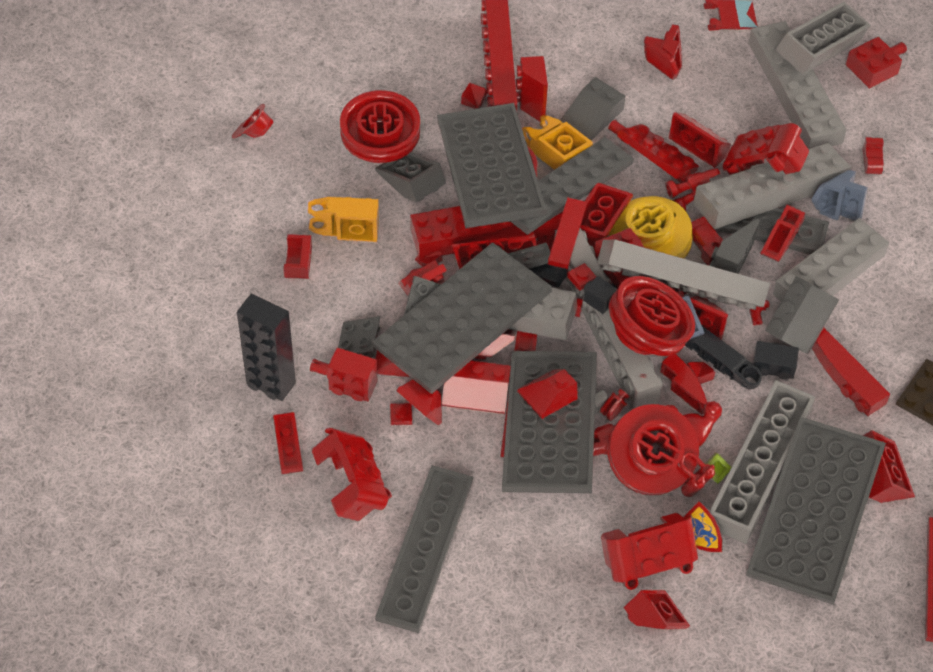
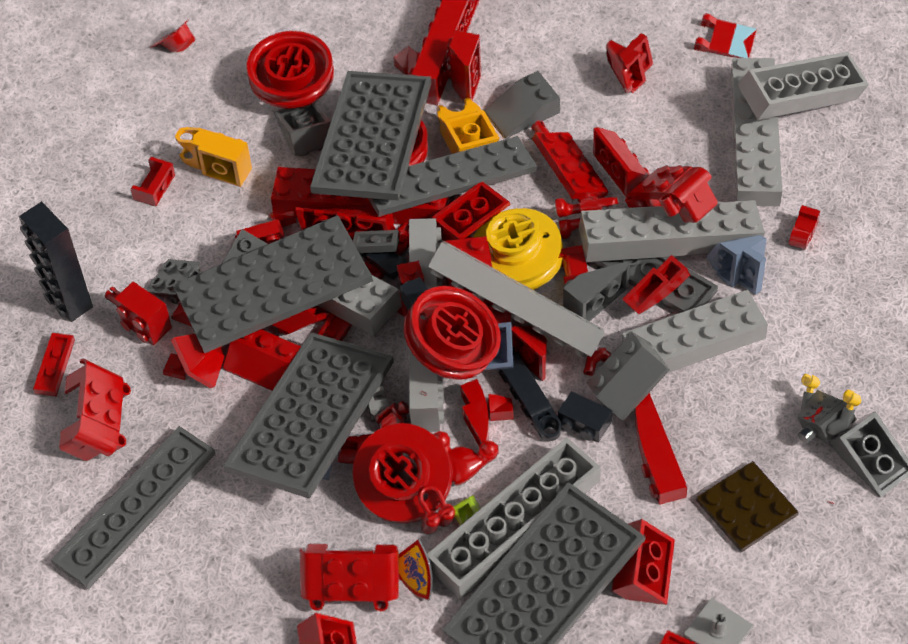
camera: 25 degrees right, 0 degrees up
(550, 392) = (319, 385): red slope -> none
(567, 233) = (418, 225): red tile -> none
(875, 61) = (858, 125): red brick -> none

